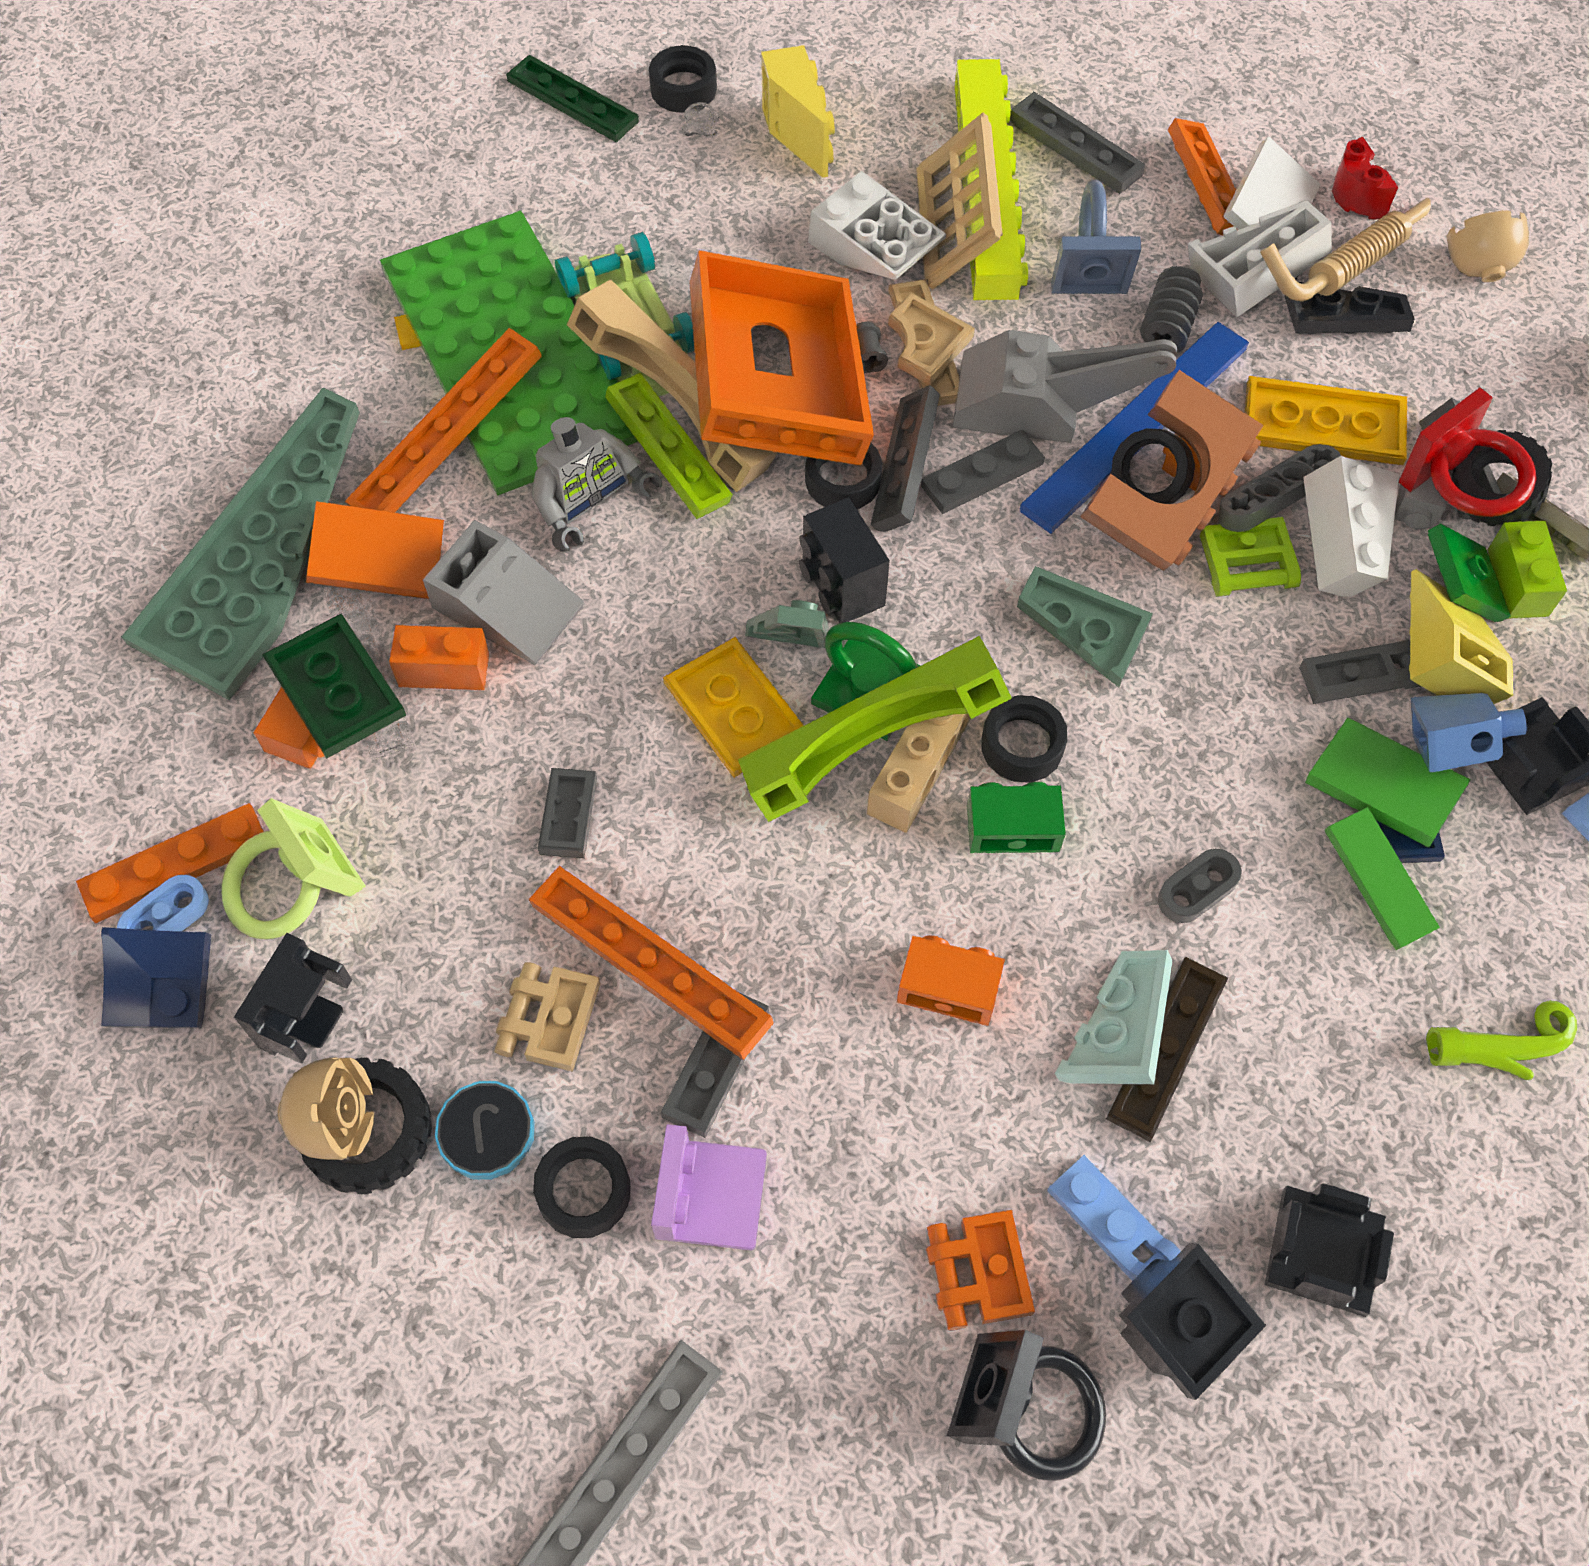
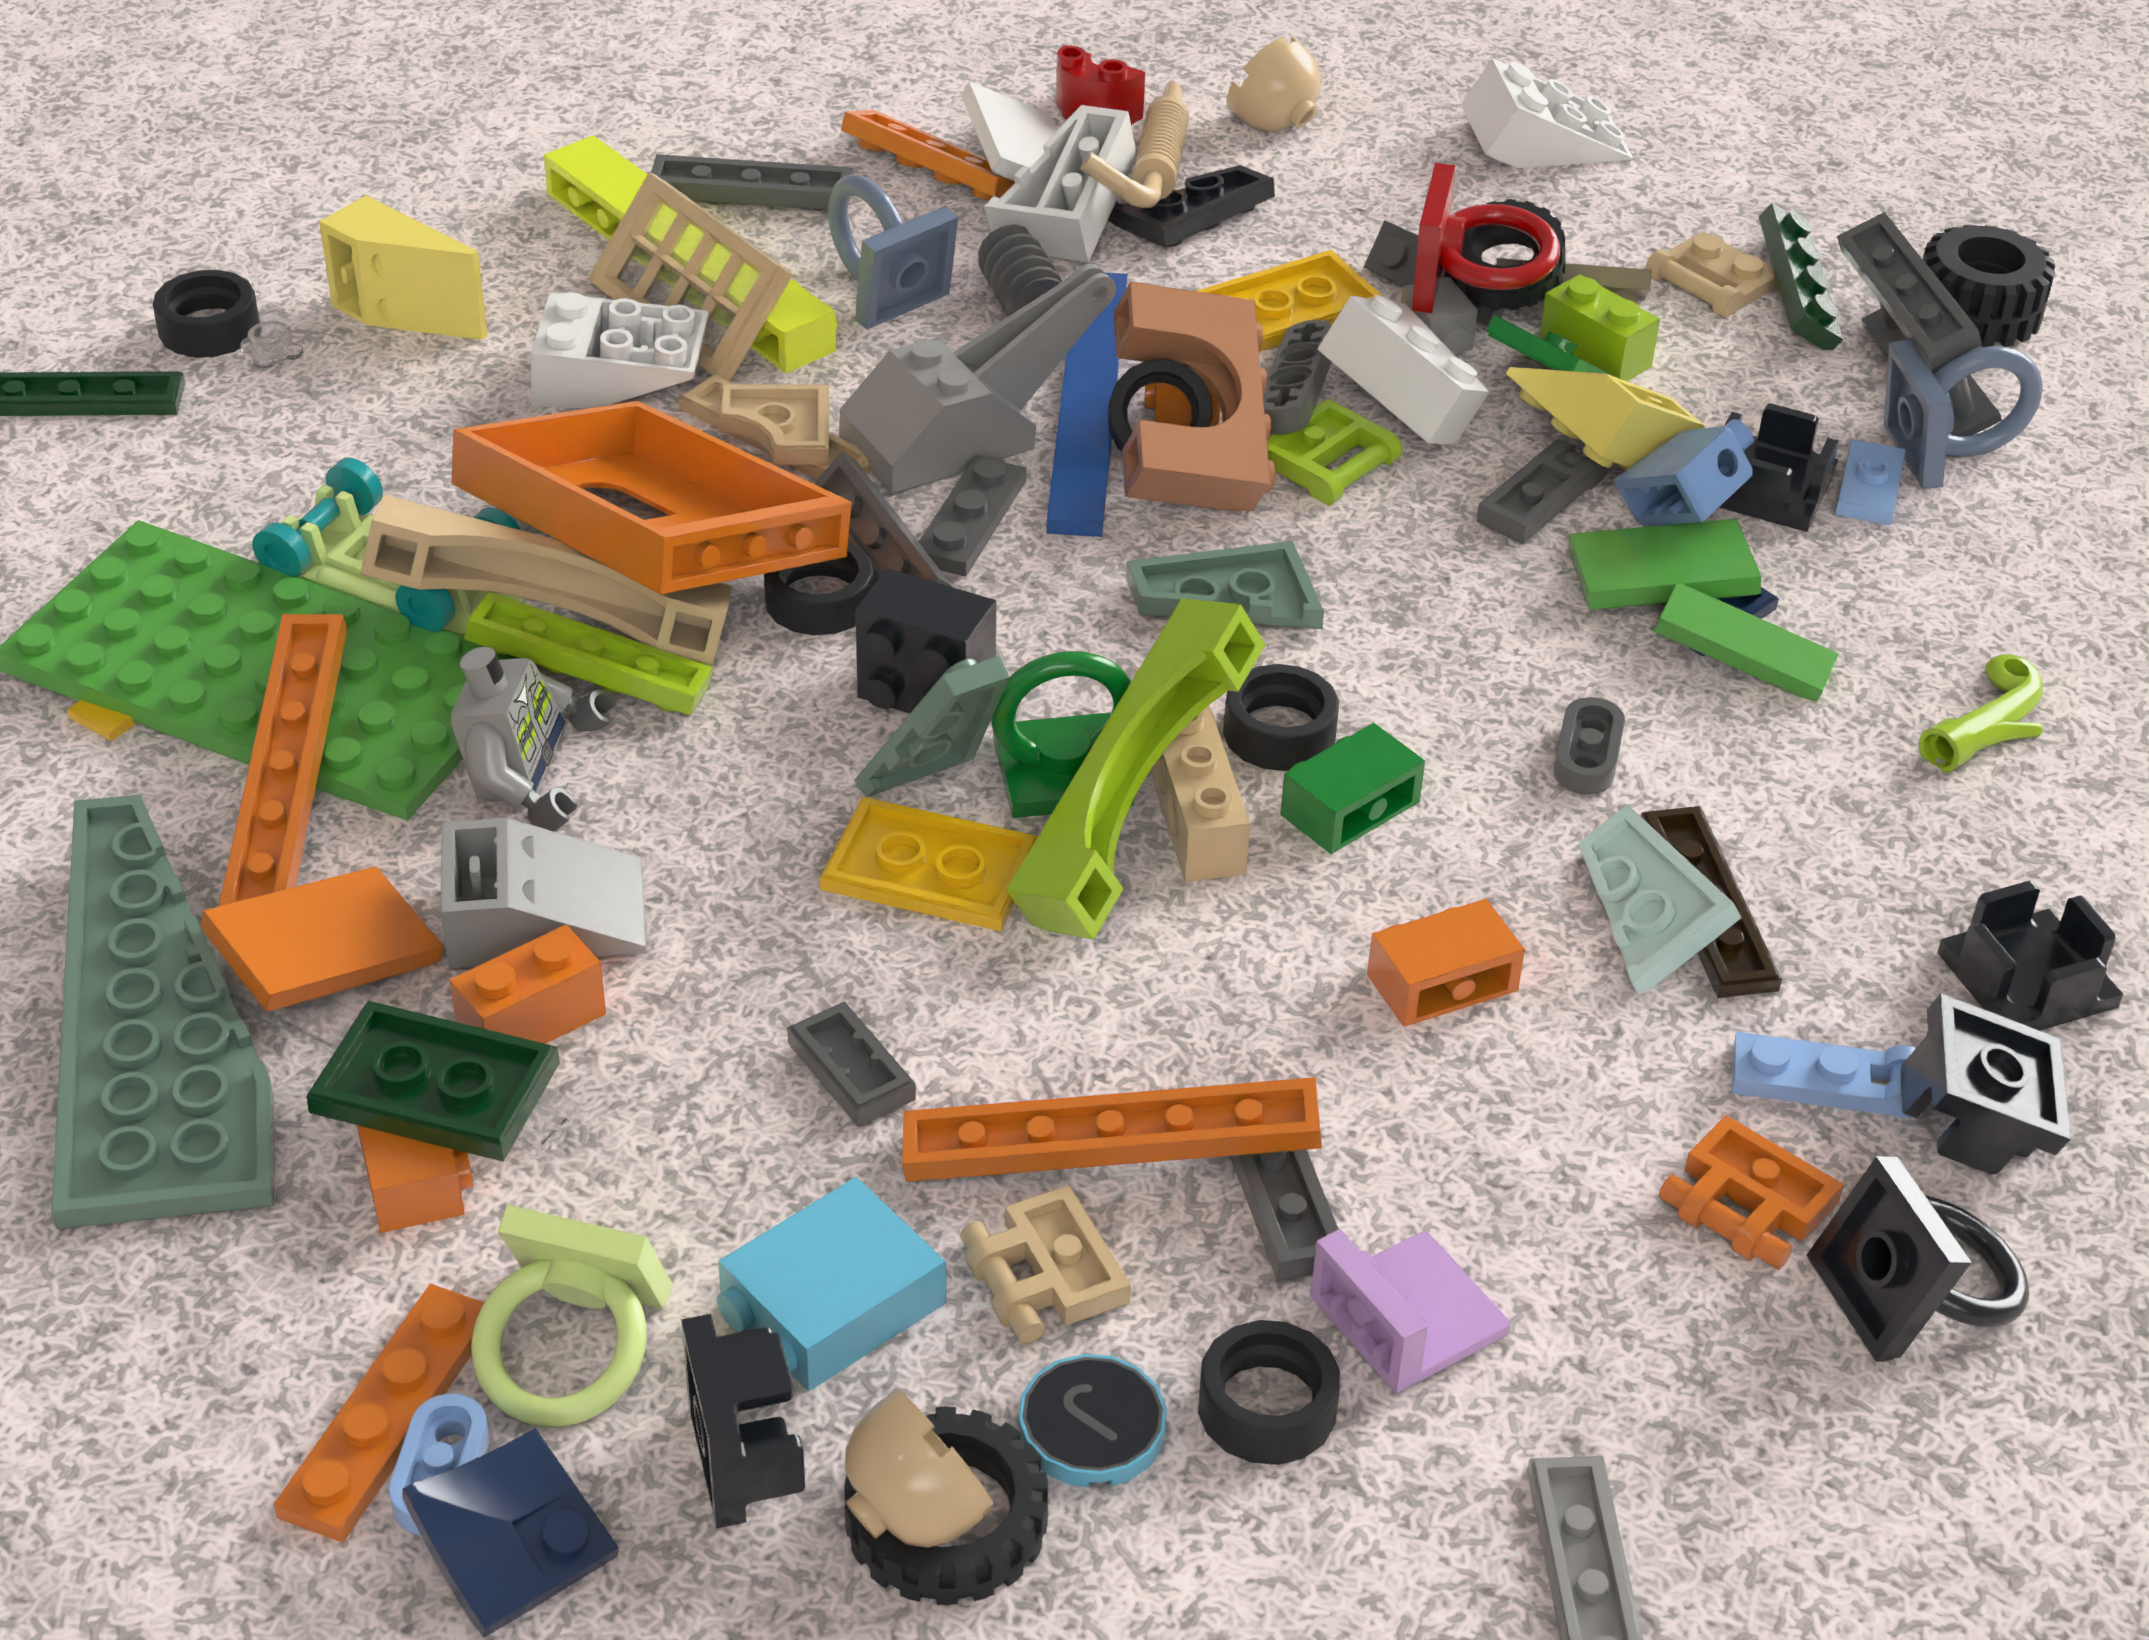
camera: 40 degrees left, 20 degrees down
(425, 948) = (832, 1282): none -> medium azure brick

